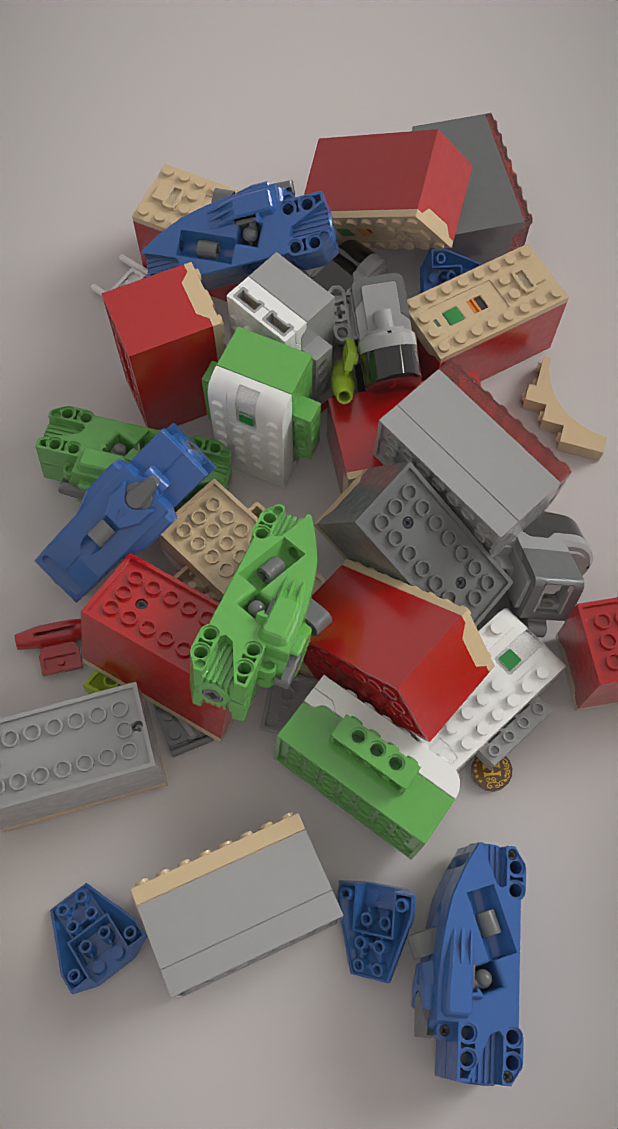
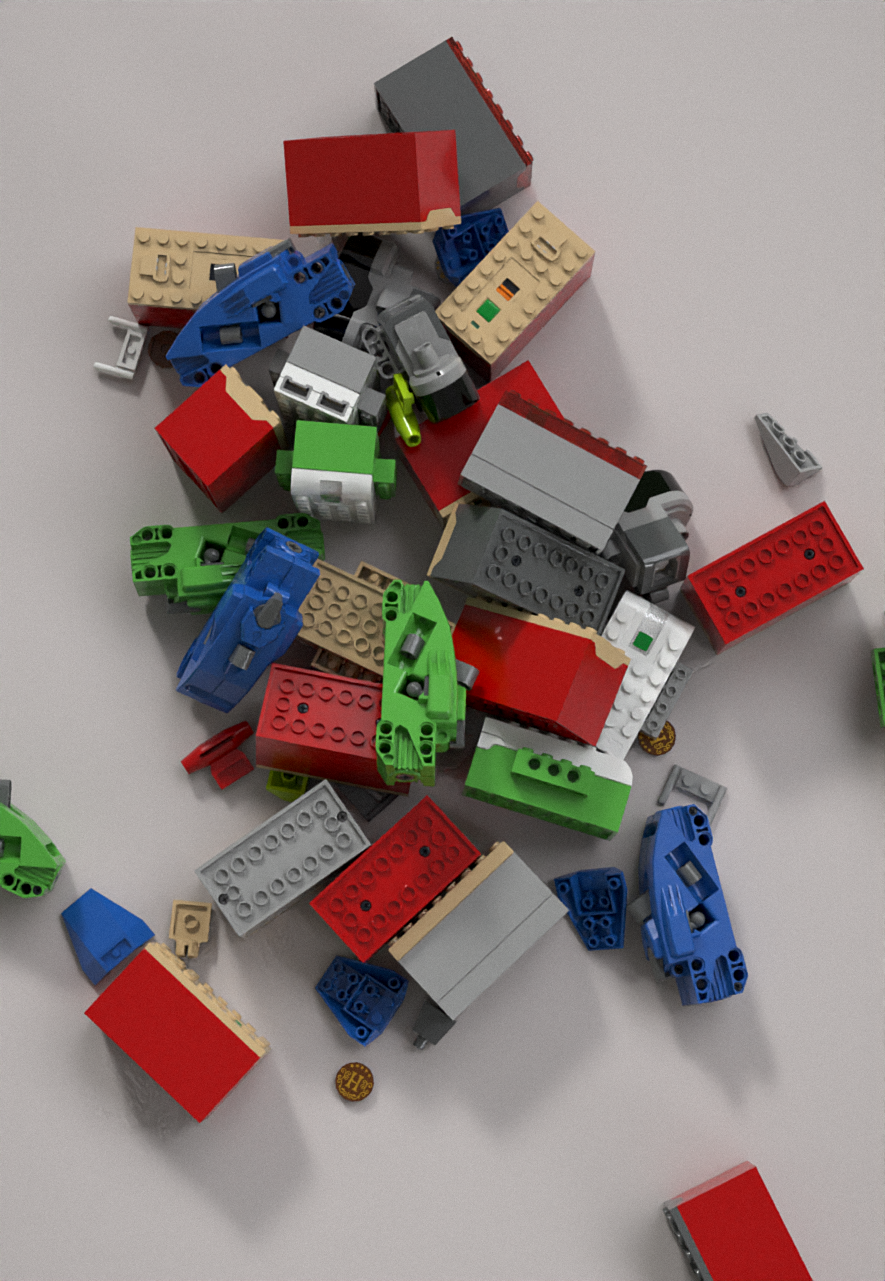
camera: 15 degrees left, 15 degrees up
(48, 1031) = (354, 1081): none -> reddish brown tile
(152, 997) = (431, 1025): none -> dark grey torso
(166, 816) = (395, 879): none -> red piece
(518, 834) = (695, 785): none -> light grey plate
(553, 418) = (616, 361): tan arch -> none

